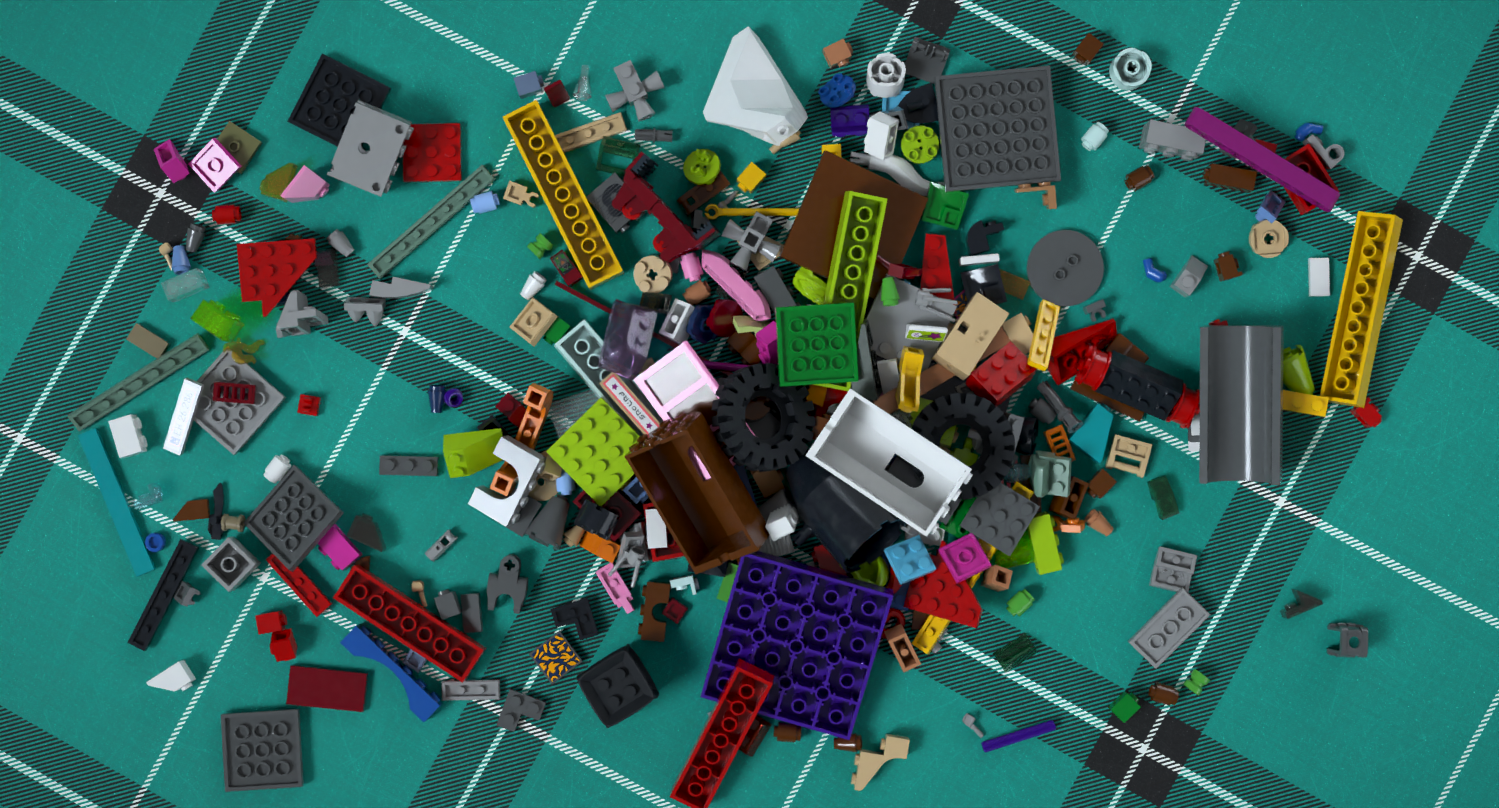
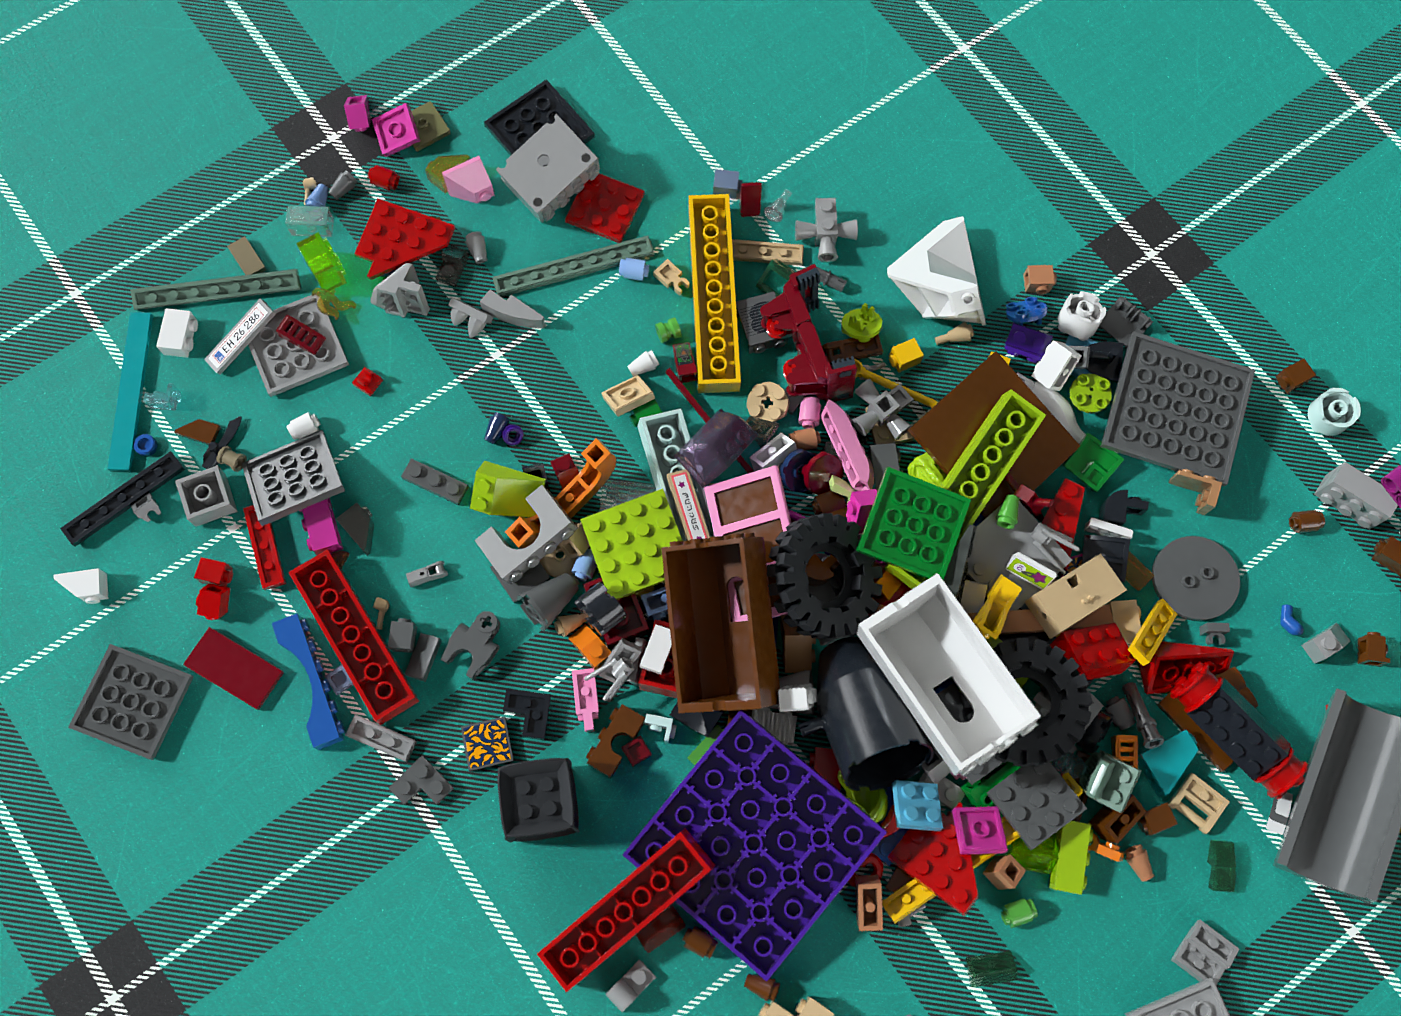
camera: 20 degrees right, 15 degrees down
(749, 786) = (630, 986): none -> light grey plate
(1094, 136) = (1273, 461): light aqua brick -> none

